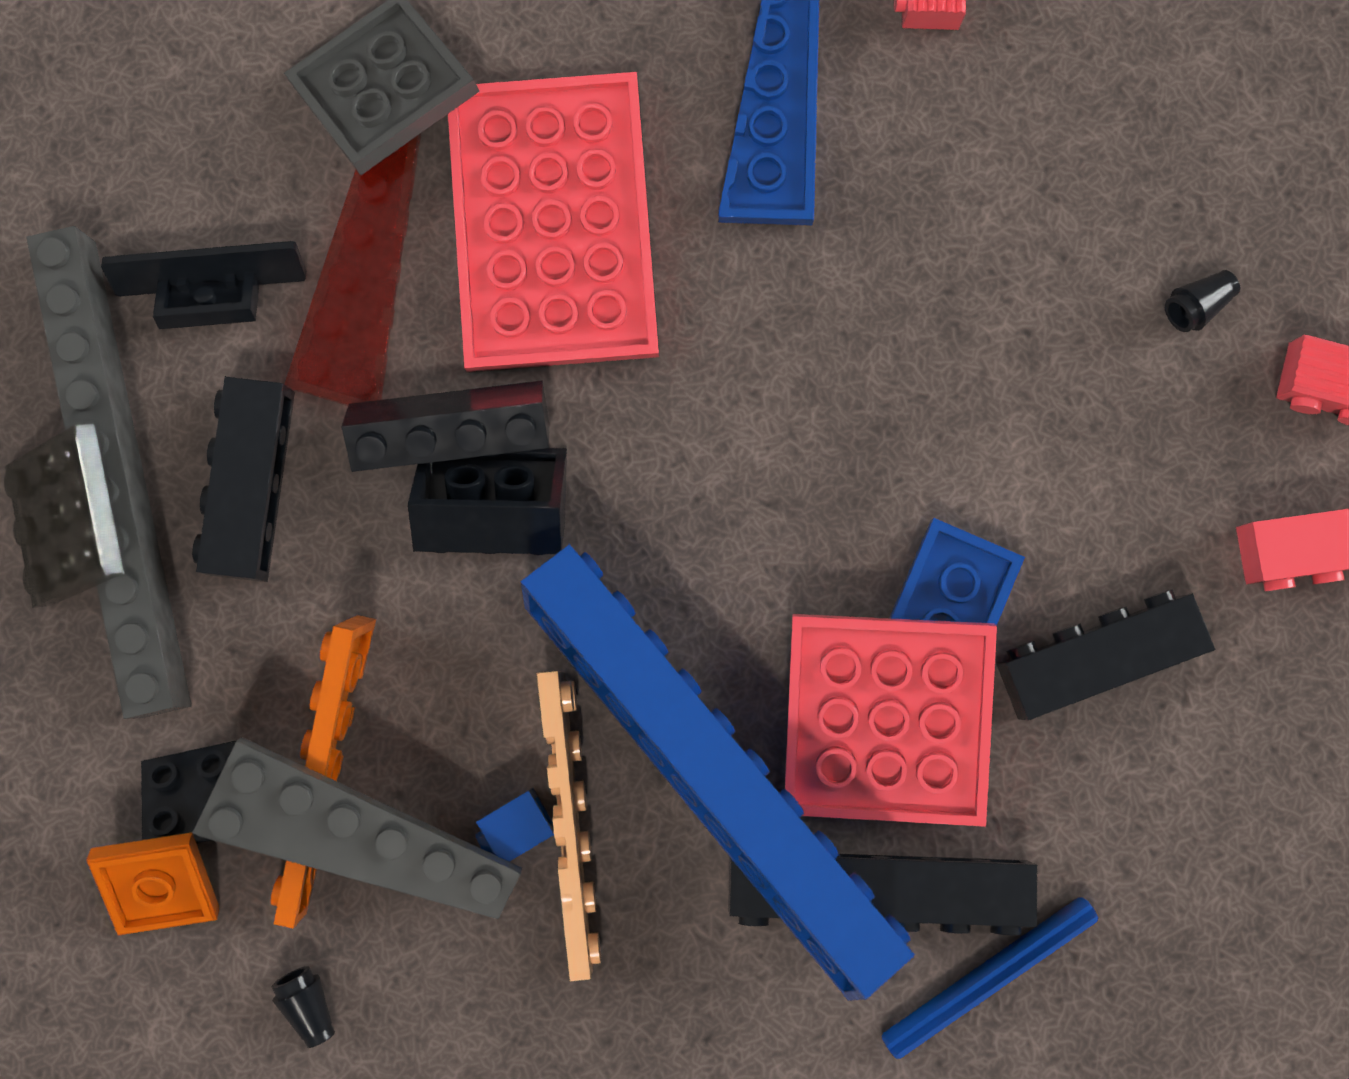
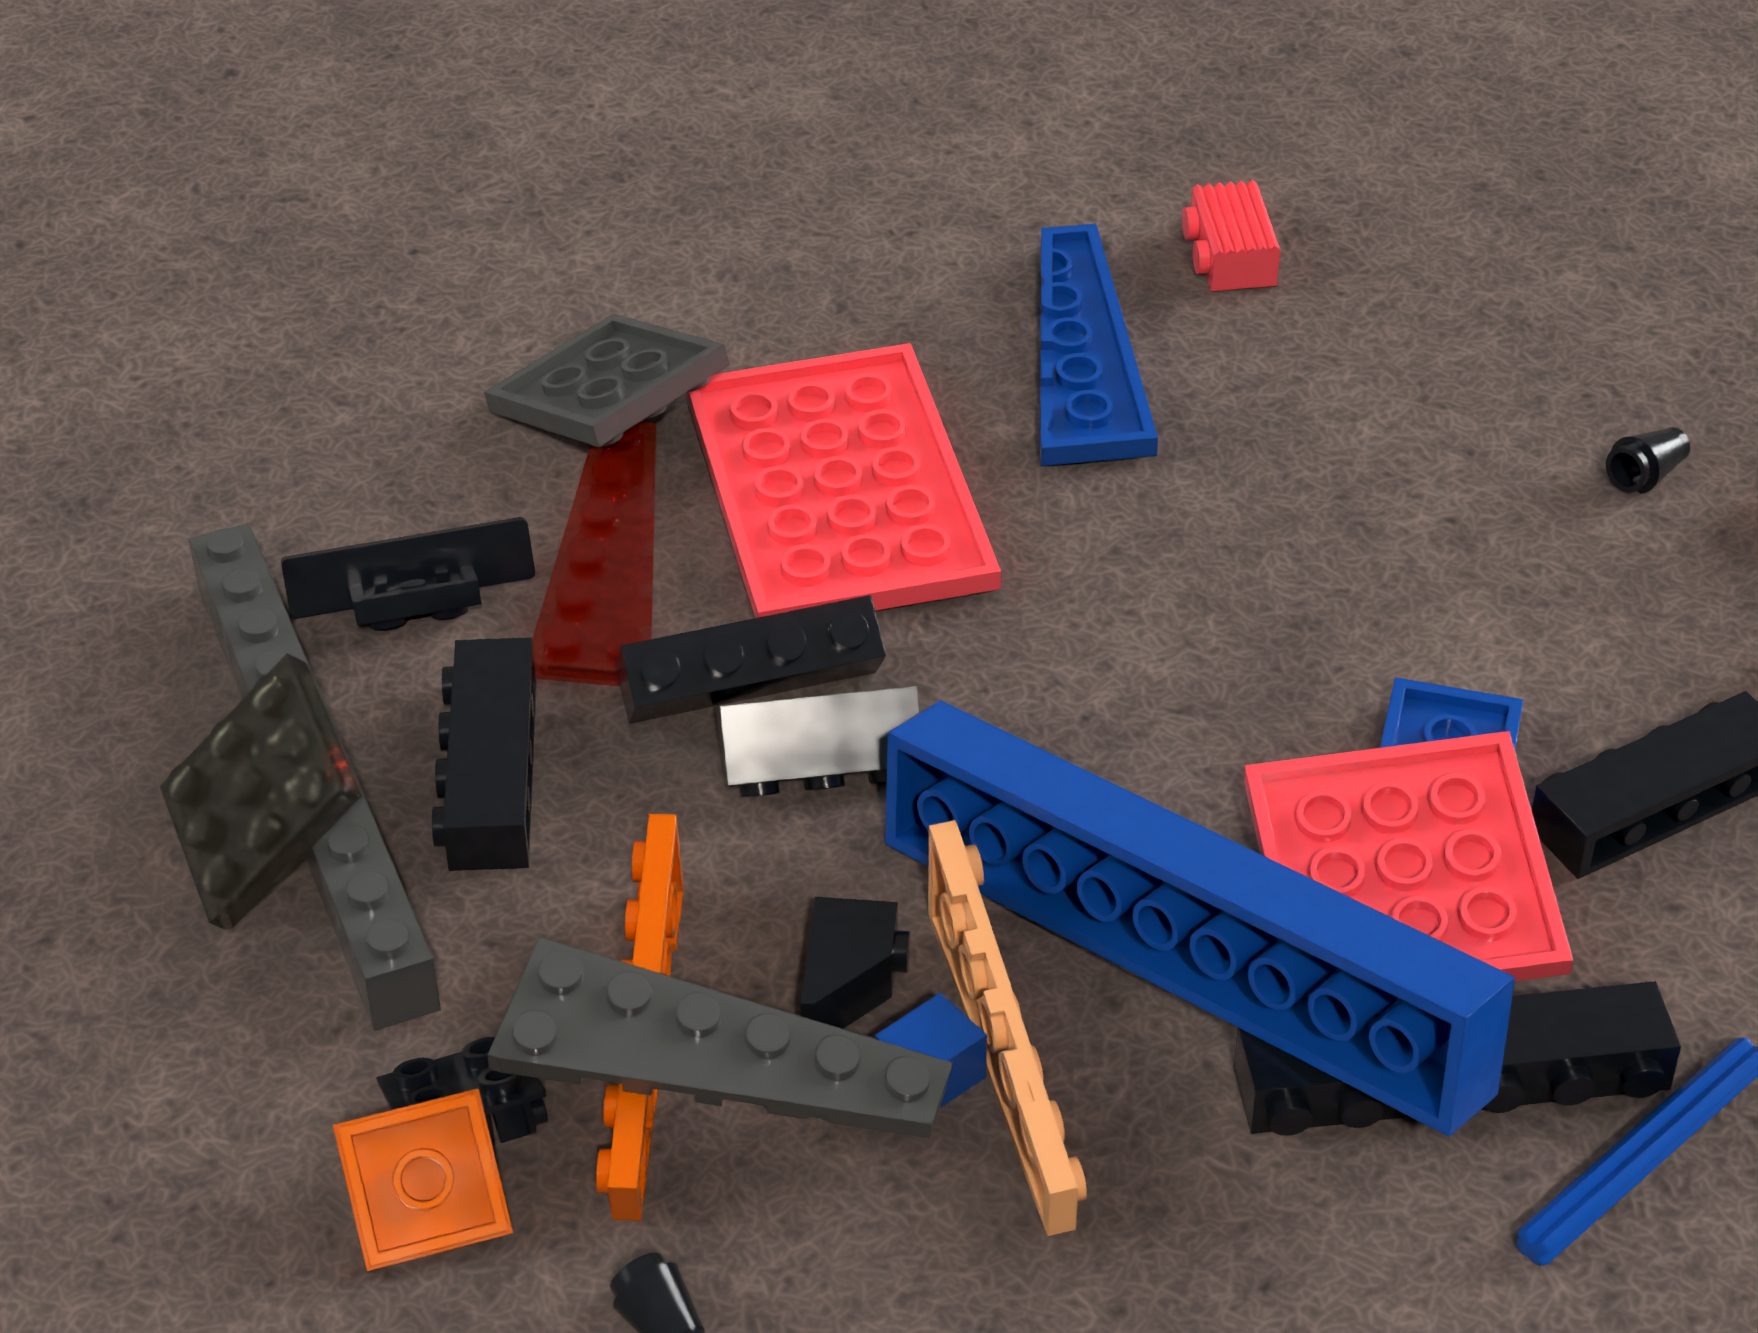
camera: 10 degrees left, 40 degrees down
(474, 731) = (851, 959): none -> black slope

